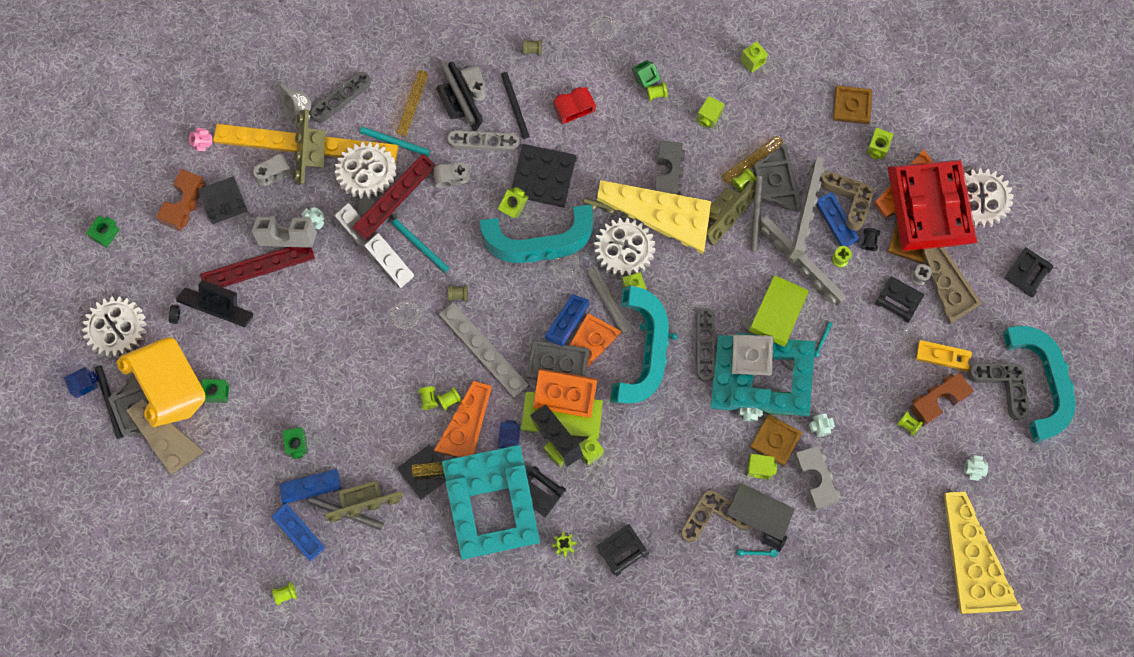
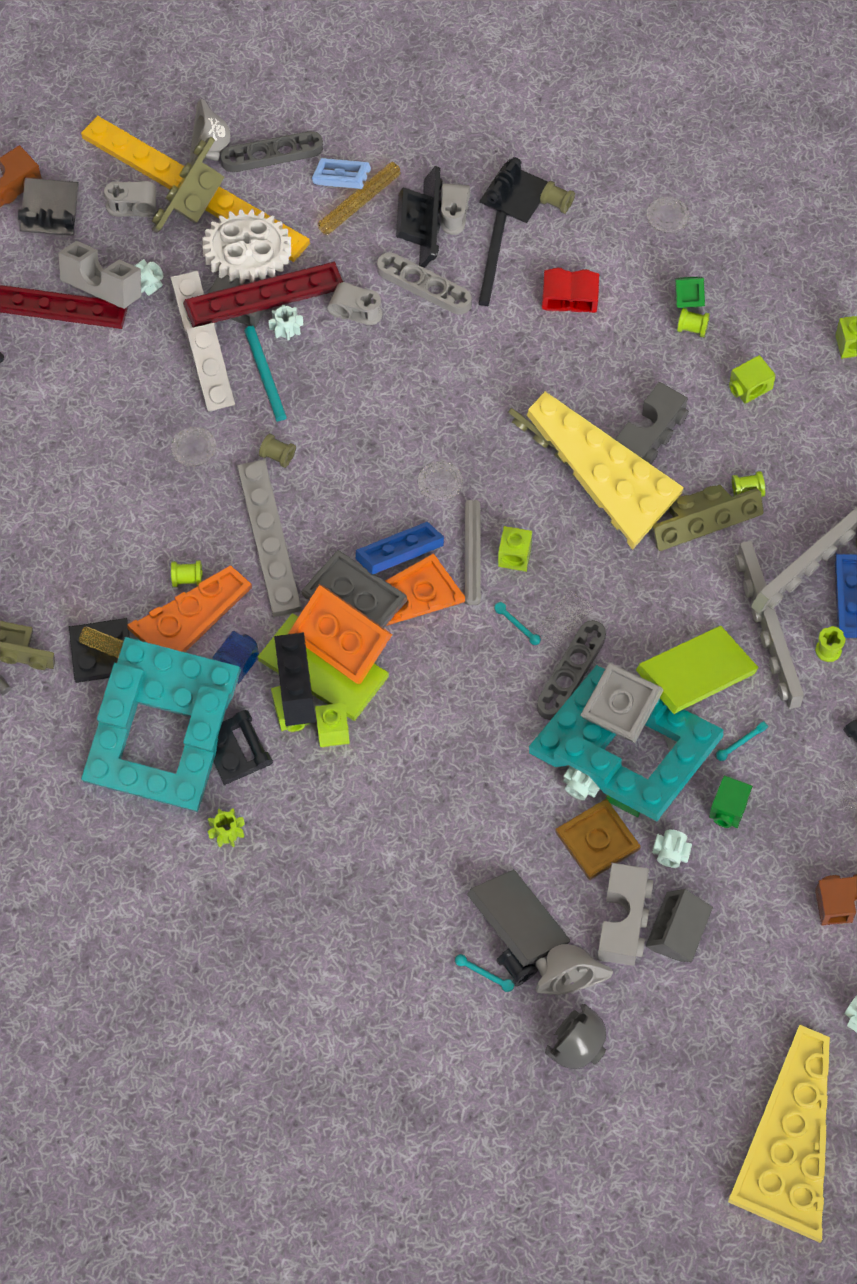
camera: 30 degrees right, 10 degrees down
(200, 139) = (65, 123): bright pink gear -> none
(392, 95) = (339, 176): none -> light blue tile
(392, 140) = (305, 230): teal bar -> none
(412, 210) = (285, 322): none -> light aqua gear
(427, 397) = (160, 559): lime bush -> none
(469, 116) = (423, 211): flat silver bar -> none
(504, 54) = (514, 191): none -> black hinge
(506, 205) = (405, 371): lime brick -> none
(541, 247) = (423, 443): teal arch -> none
(544, 174) = (478, 360): black plate -> none
(618, 262) = (551, 482): white gear -> none
(618, 544) = (300, 864): black plate -> none
(654, 349) = (519, 590): teal arch -> none
(709, 510) = (450, 883): dark tan beam -> none
(753, 158) = (779, 465): clear yellow axle -> none
(757, 213) = (741, 534): flat silver bar -> none
(761, 466) = (554, 860): lime brick -> none
(778, 180) = (795, 505): dark grey wing -> none
(804, 526) = (567, 965): none -> light grey hat
(835, 563) = (579, 1040): none -> dark grey cylinder
(838, 381) = (730, 802): none -> green brick
(849, 468) = (679, 925): none -> dark grey brick
(904, 423) = (797, 898): lime bush -> none

